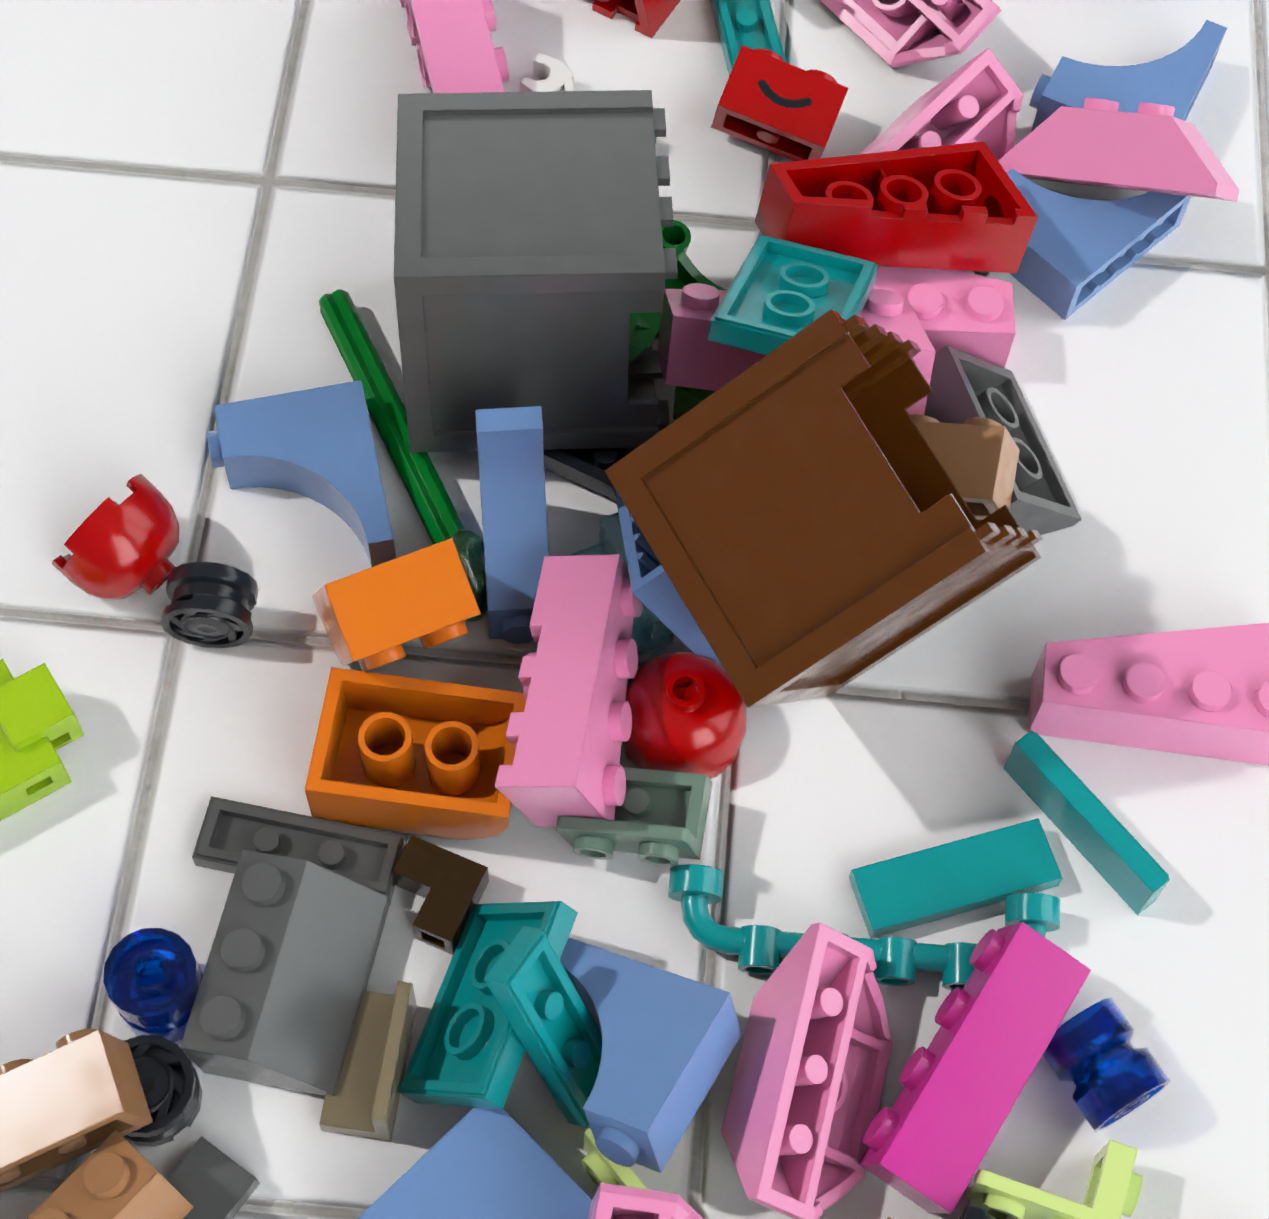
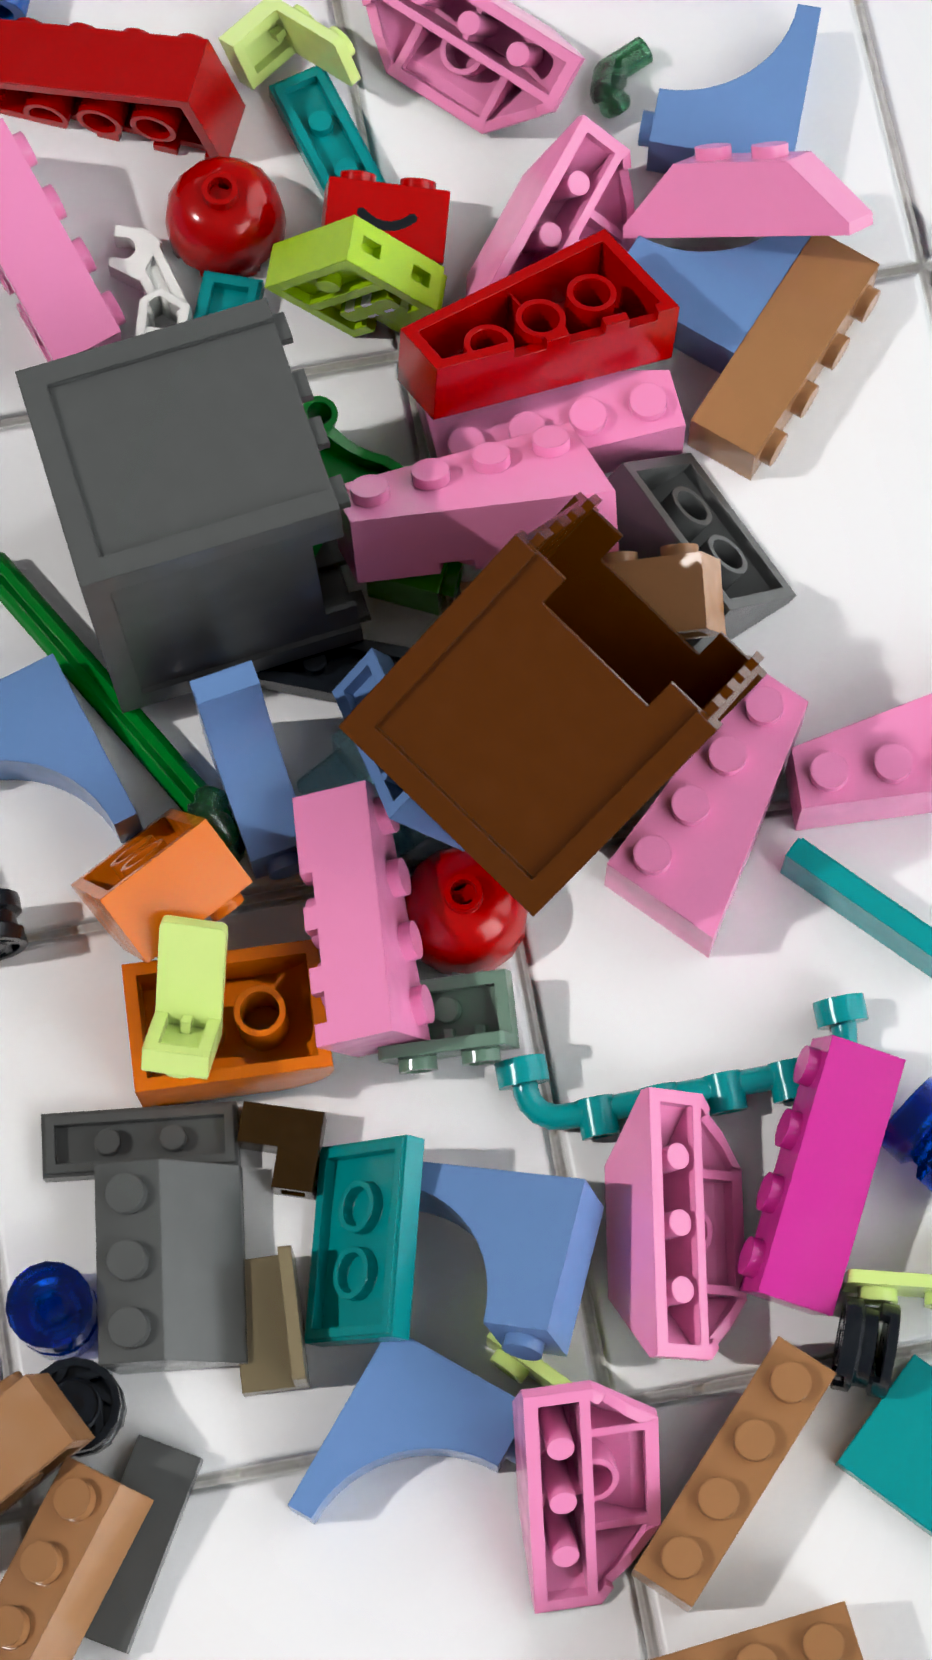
camera: 10 degrees left, 10 degrees up
(384, 706) = (188, 998): none -> yellowish green bracket
(548, 1019) = (429, 1248): teal tile -> none
(641, 55) = (224, 217): none -> red cylinder
(736, 128) = (356, 277): none -> lime piece
(785, 290) = (464, 475): teal tile -> none
(943, 693) = (703, 825): none -> bright pink wedge
(954, 878) = (760, 996): teal tile -> none
(1026, 41) = (611, 76): none -> clear green arm
(1121, 307) = (783, 356): none -> medium nougat brick

